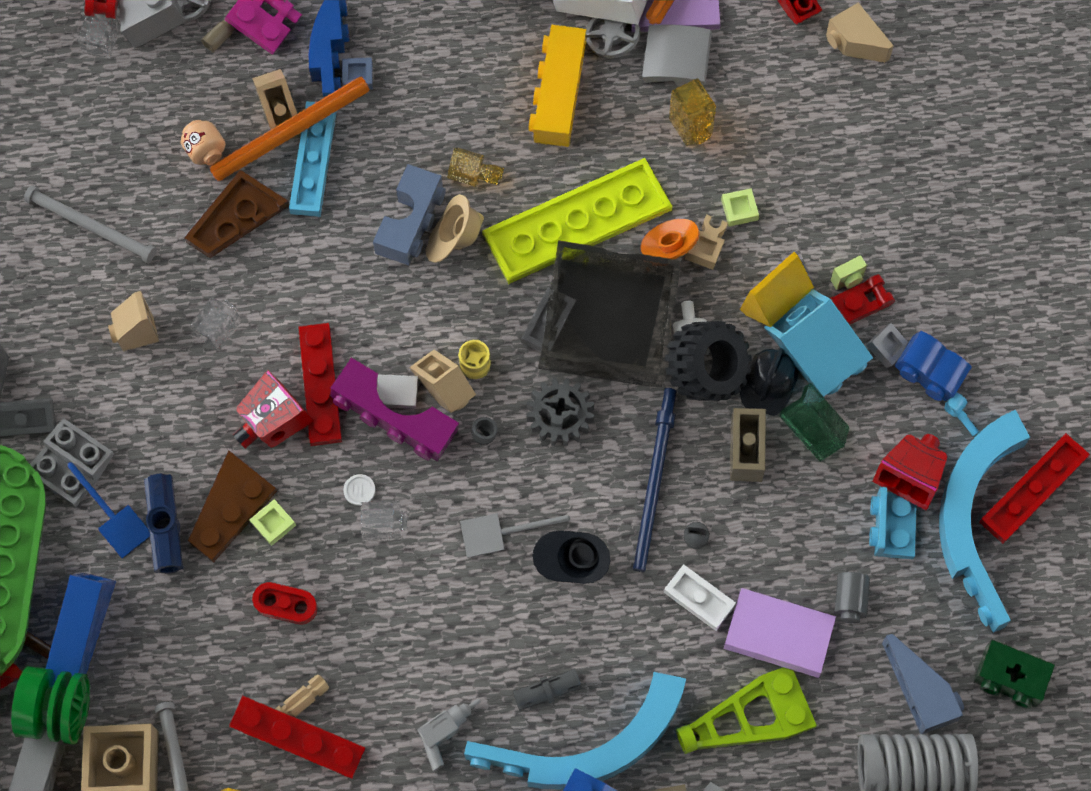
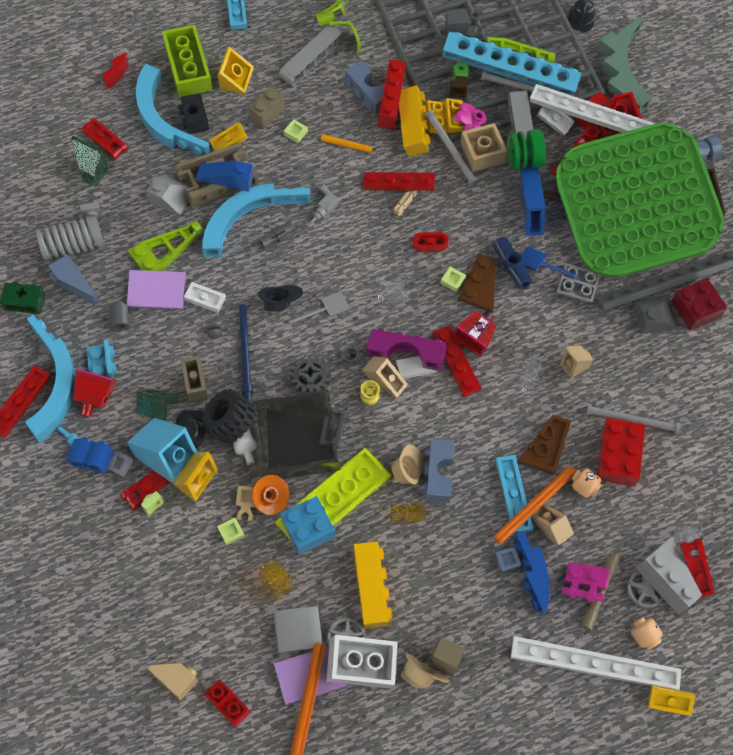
camera: 160 degrees right, 5 degrees down
(132, 173) = (621, 452): none -> red brick
(359, 489) = (412, 310): white piece -> none
(628, 174) = (307, 525): none -> dark azure brick

